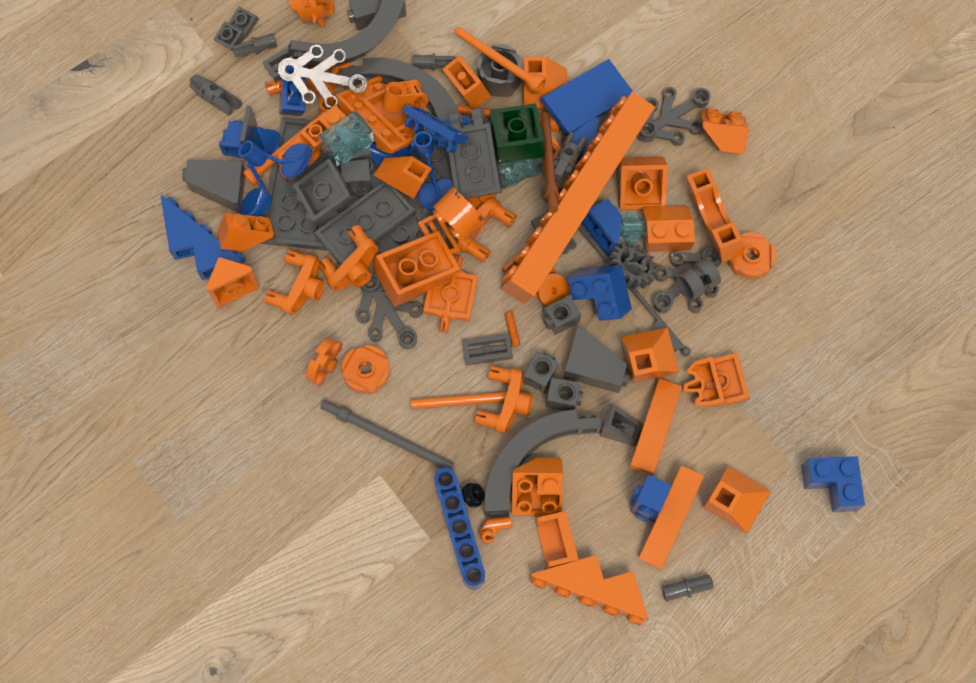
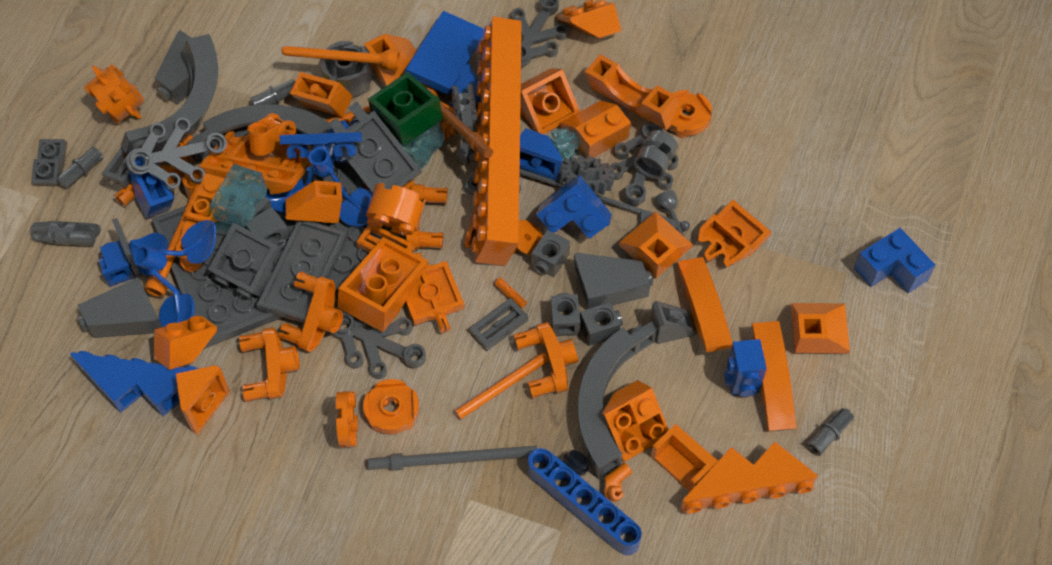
camera: 30 degrees left, 10 degrees down
(684, 324) = (667, 202): none -> dark grey hinge

